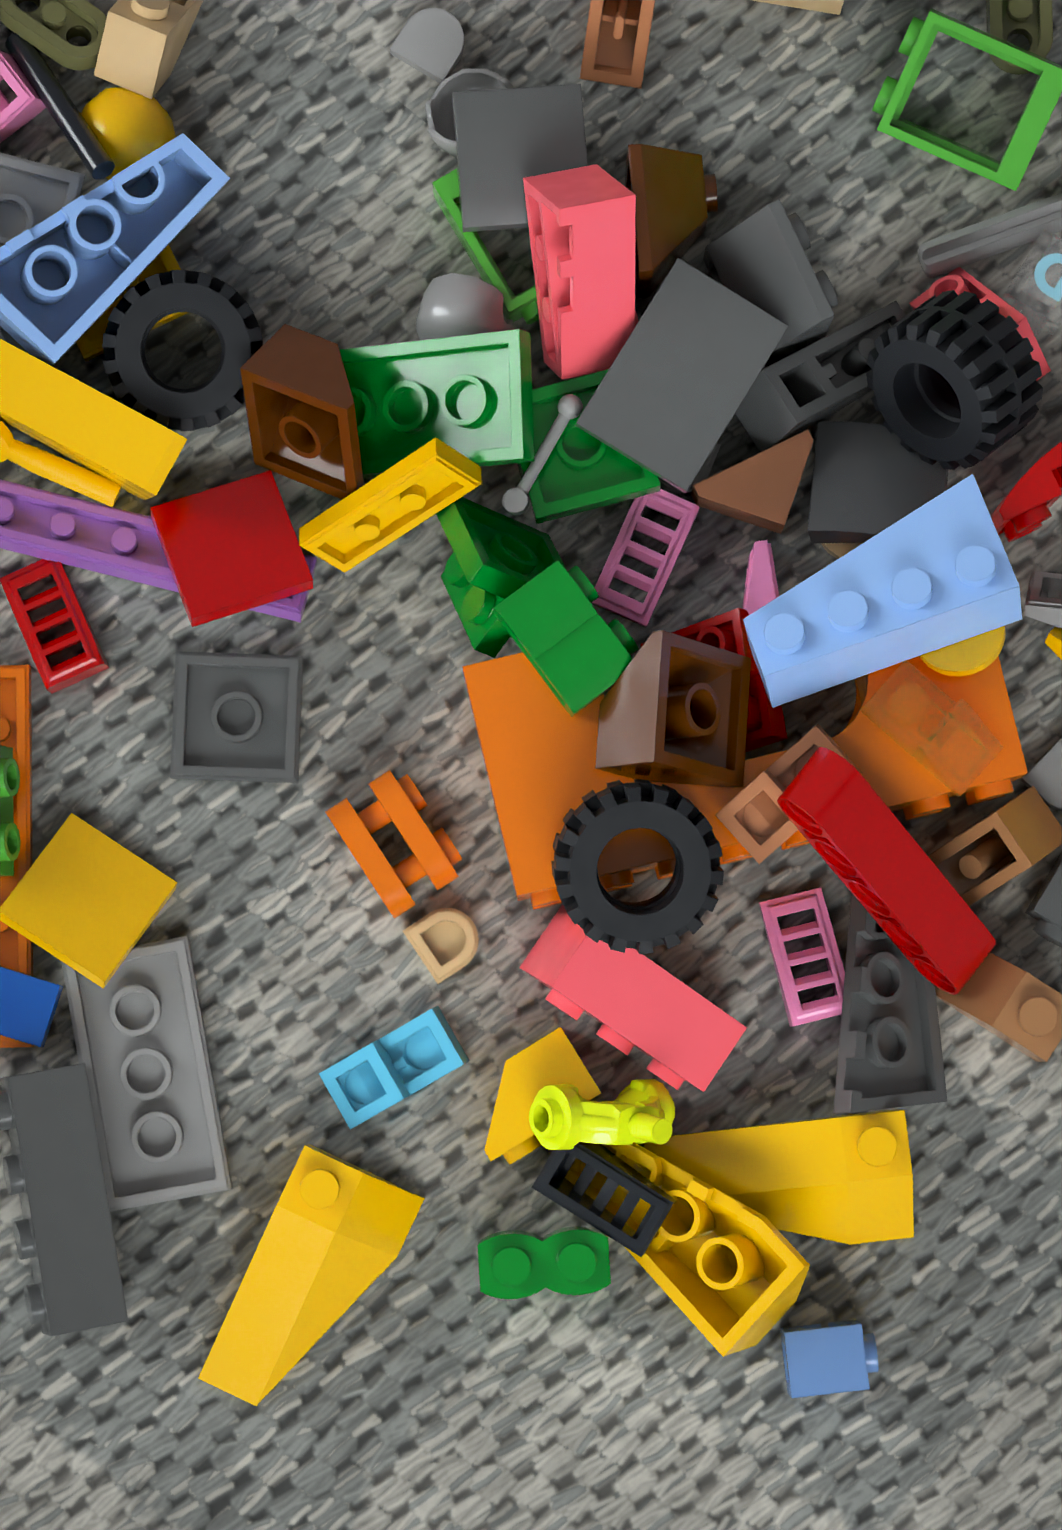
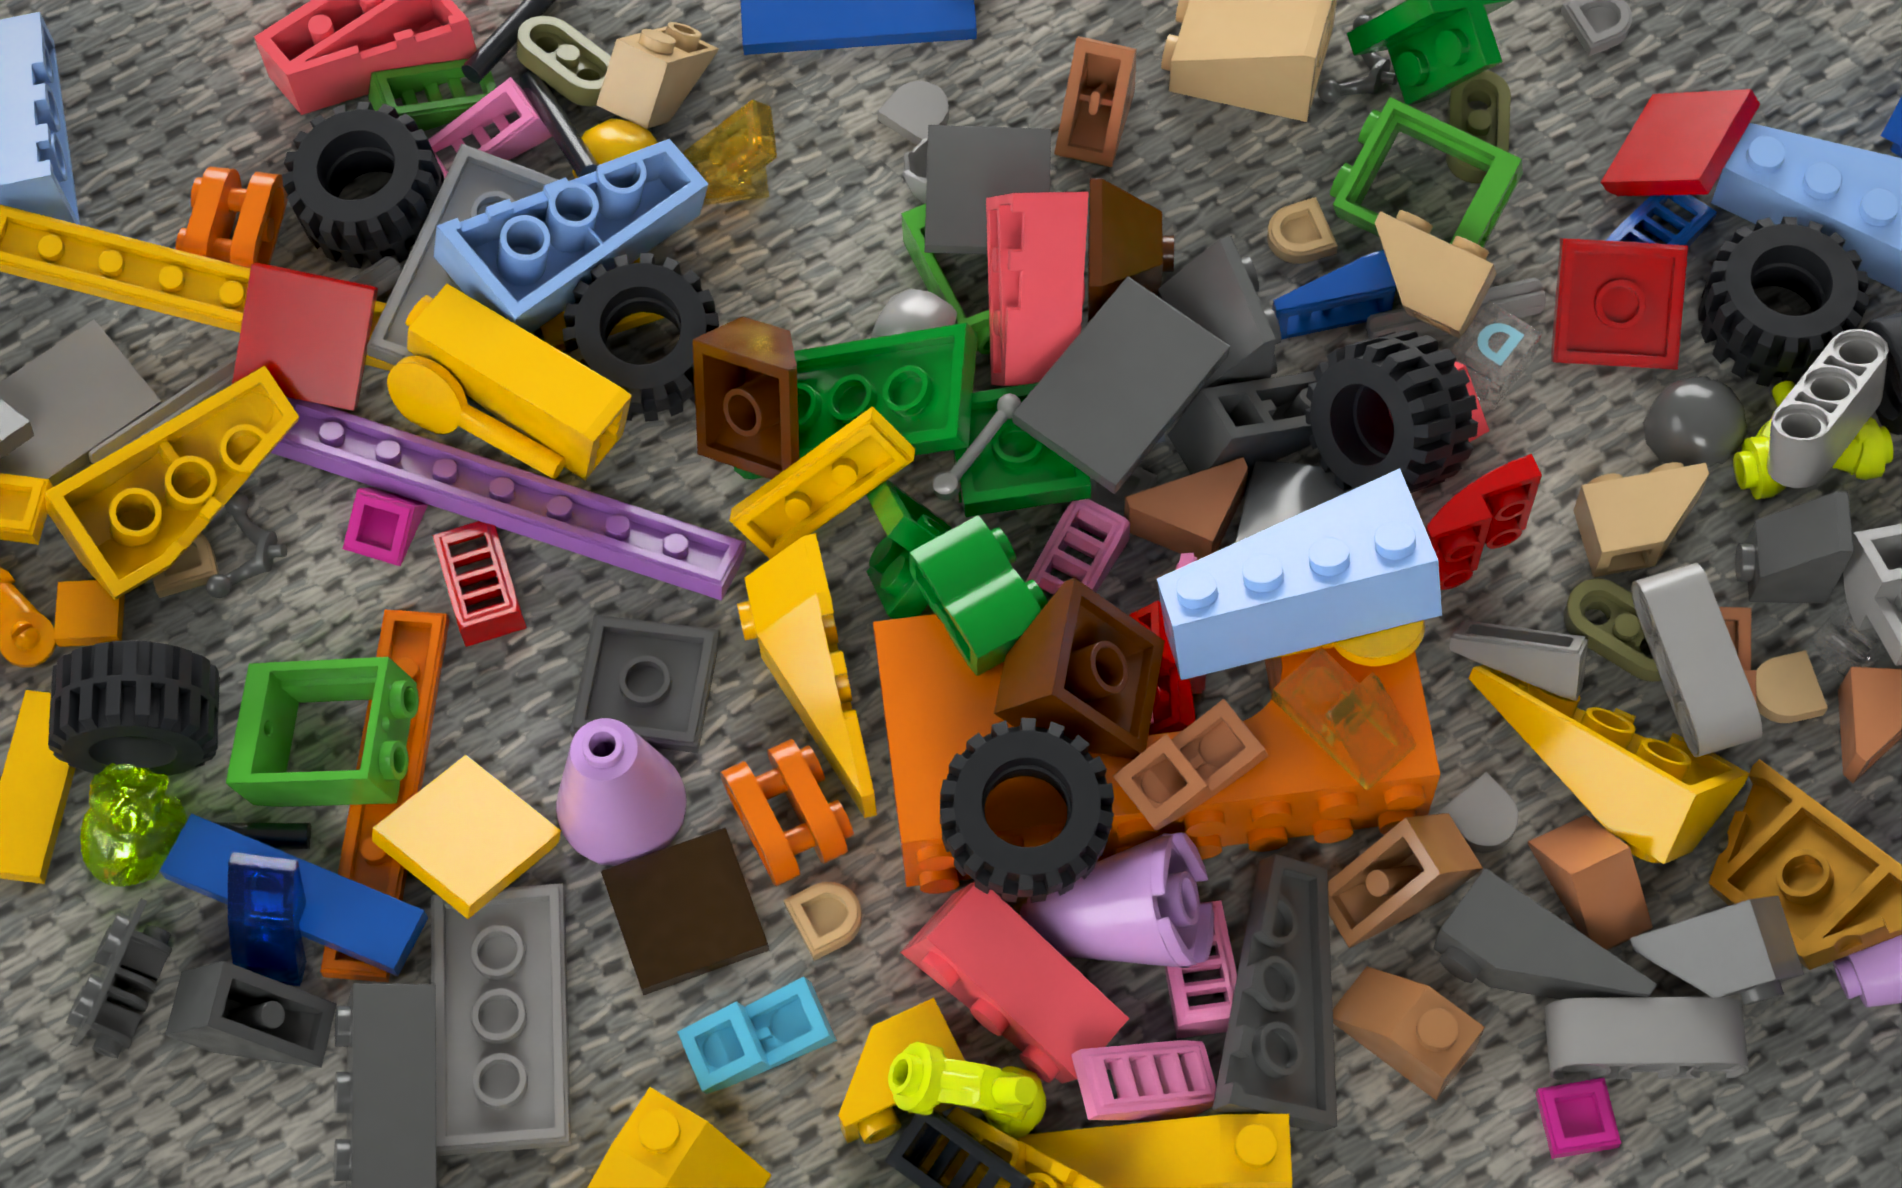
camera: 10 degrees right, 20 degrees down
(231, 548) = (662, 520): red tile -> none
(244, 123) = (736, 155): none -> clear yellow slope
(252, 860) = (618, 795): none -> lavender cone
(308, 949) = (684, 911): none -> dark brown tile
(386, 667) = (798, 642): none -> yellow wedge
(756, 924) = (1133, 908): none -> lavender cone
(801, 1073) = (1150, 1081): none -> bright pink slope
(843, 150) = (1301, 233): none -> tan tile
(886, 870) = (1287, 854): red beam -> none
(898, 226) = (1338, 298): none -> blue slope
(985, 212) = (1435, 278): none -> tan slope

